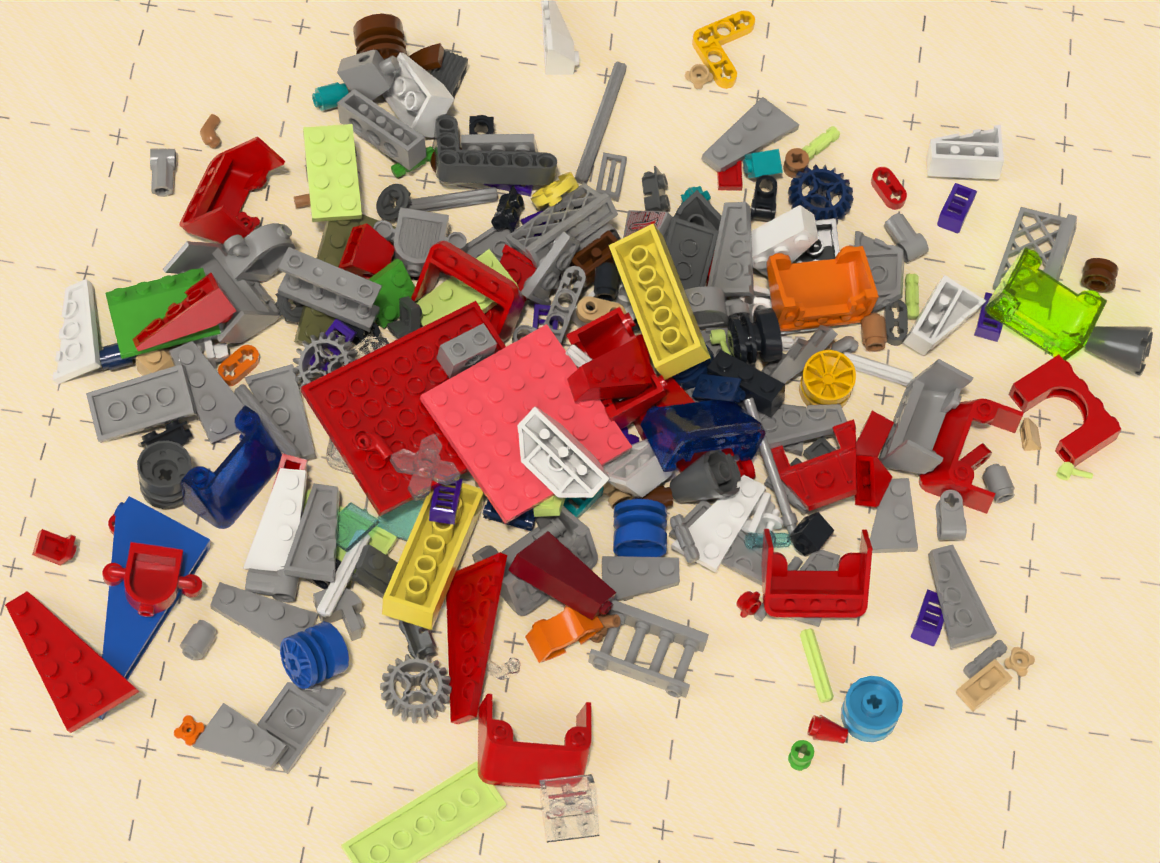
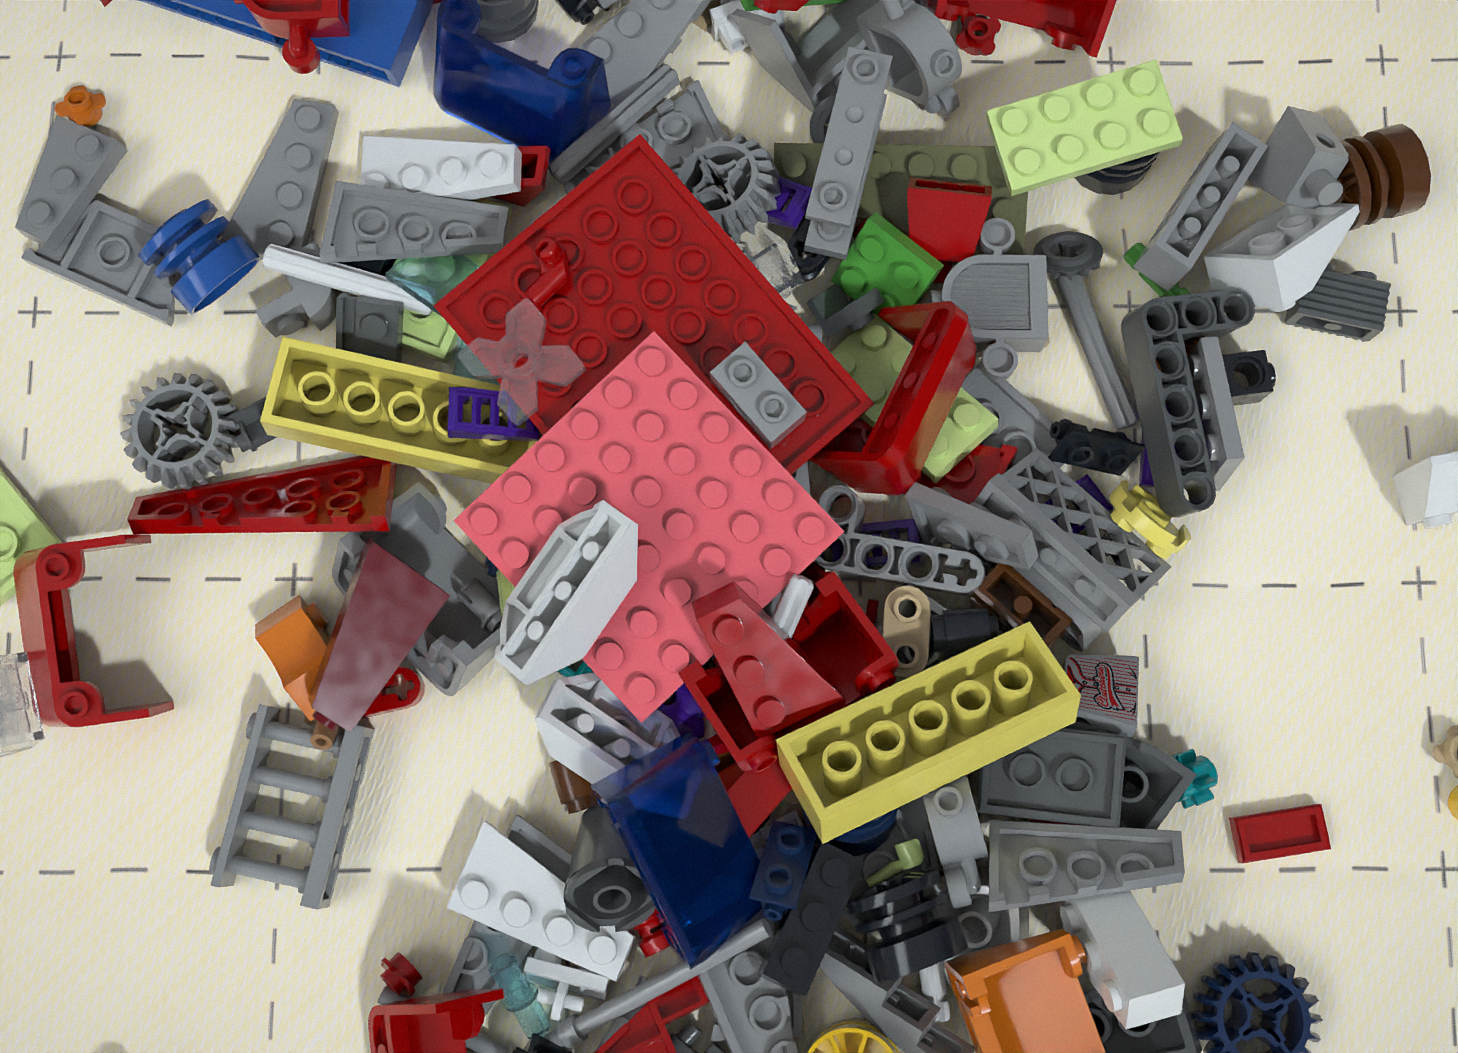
camera: 90 degrees right, 15 degrees up
(198, 640) = (229, 90): light grey brick -> none
(240, 367) = (724, 64): orange beam -> none
(276, 584) = (339, 163): light grey piece -> none
(328, 95) = (1252, 114): teal brick -> none
(429, 57) = (1363, 259): reddish brown slope -> none
(505, 670) = (233, 566): clear arm -> none
(600, 122) = (1317, 585): light grey axle -> none
(615, 195) = (1171, 619): light grey tile -> none
(639, 575) = (433, 768): light grey wing -> none
(640, 528) = (496, 761): blue wheel -> none
(655, 184) = (1209, 701): dark grey hinge -> none
(684, 538) = (489, 843): light grey axle -> none
(752, 132) = (1372, 875): light grey wing -> none
(762, 163) = (1296, 896): teal brick -> none
(764, 203) = (1212, 908): black piece -> none
(792, 168) = (1305, 957): medium nougat wheel -> none
(821, 142) = (1372, 1002): yellowish green axle -> none

